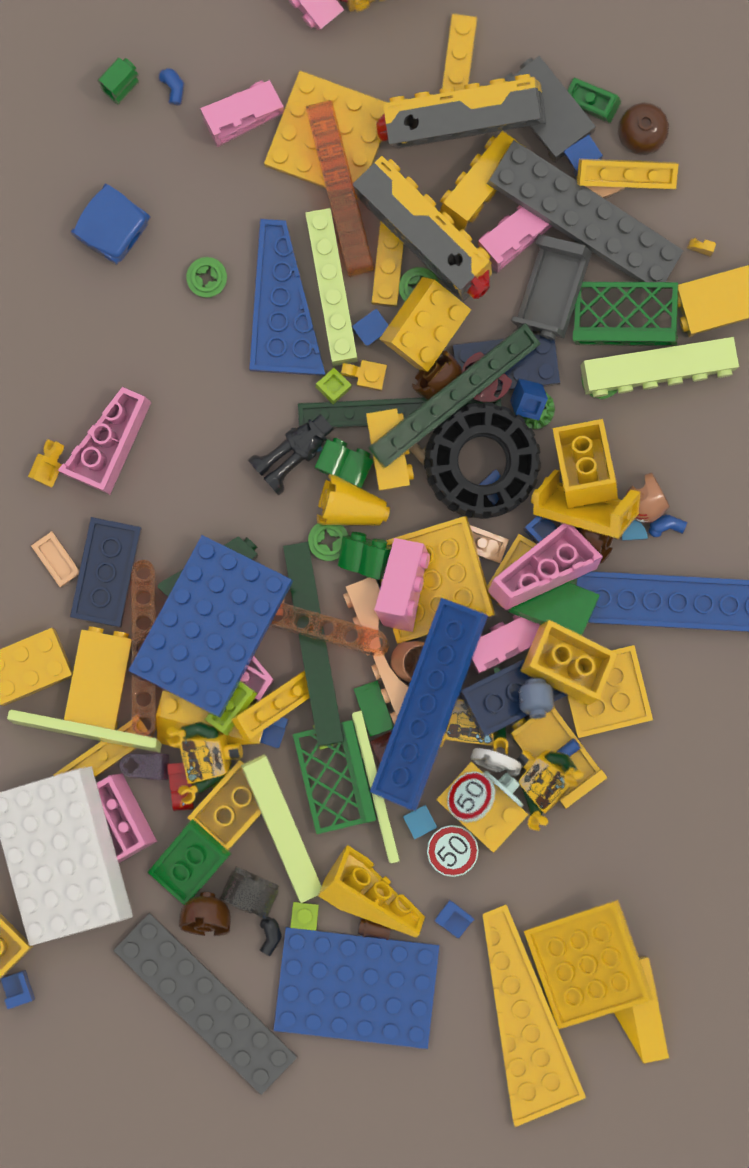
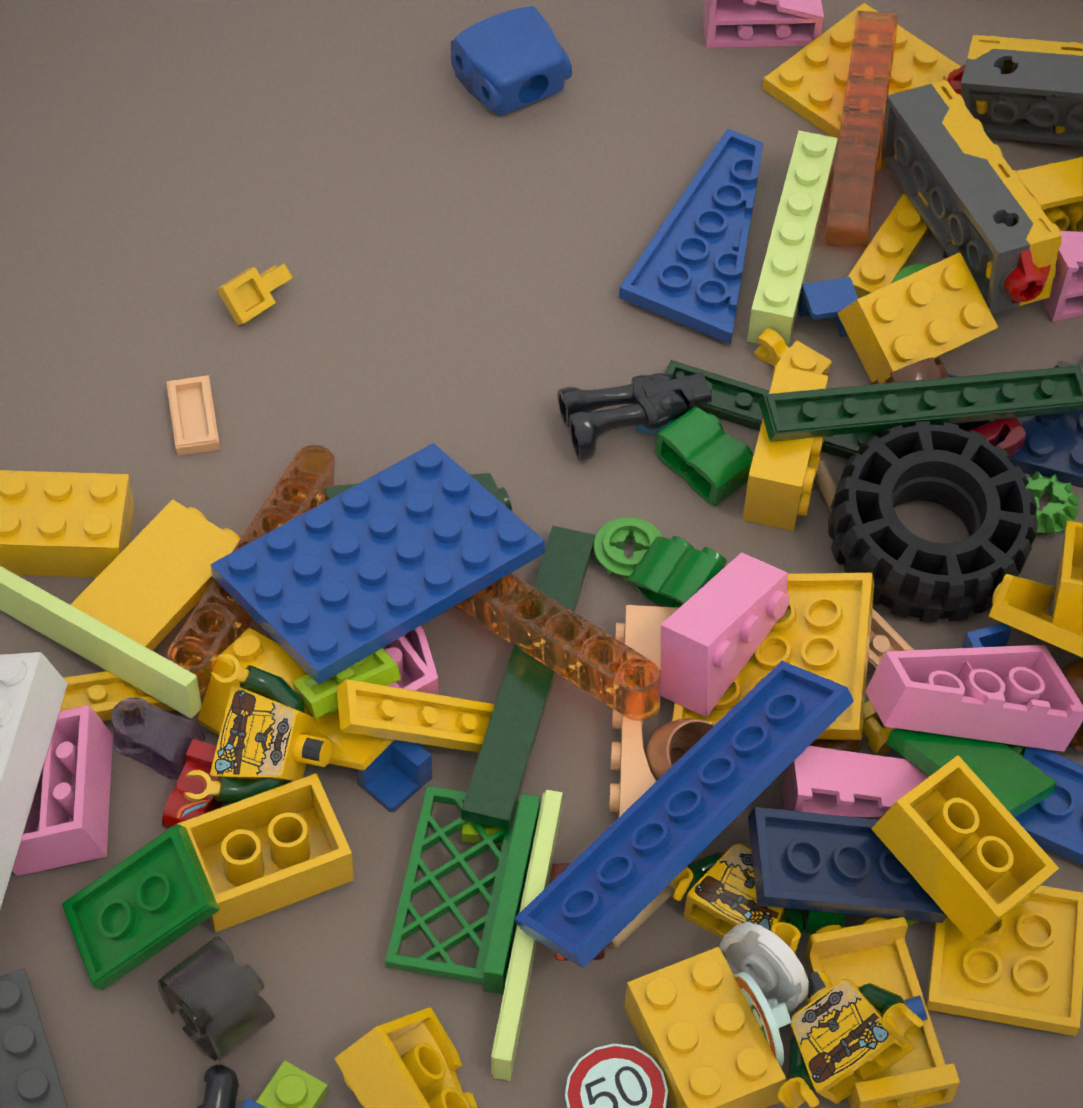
camera: 15 degrees right, 30 degrees down
(105, 572) = (251, 453): dark blue plate -> none
(108, 442) = (360, 292): bright pink wedge -> none
(200, 267) = (613, 159): bright green gear -> none
(205, 914) = (115, 1009): reddish brown cylinder -> none
(282, 828) = (330, 914): yellowish green tile -> none
(333, 386) = (737, 355): lime plate -> none
(350, 505) = (688, 504): yellow cone -> none
(373, 708) = (582, 812): green slope -> none
(420, 822) = (578, 1026): dark azure tile -> none
(471, 796) = (695, 987): piece -> none
(528, 399) = (1045, 474): blue panel -> none
(536, 698) = (884, 874): sand blue head -> none

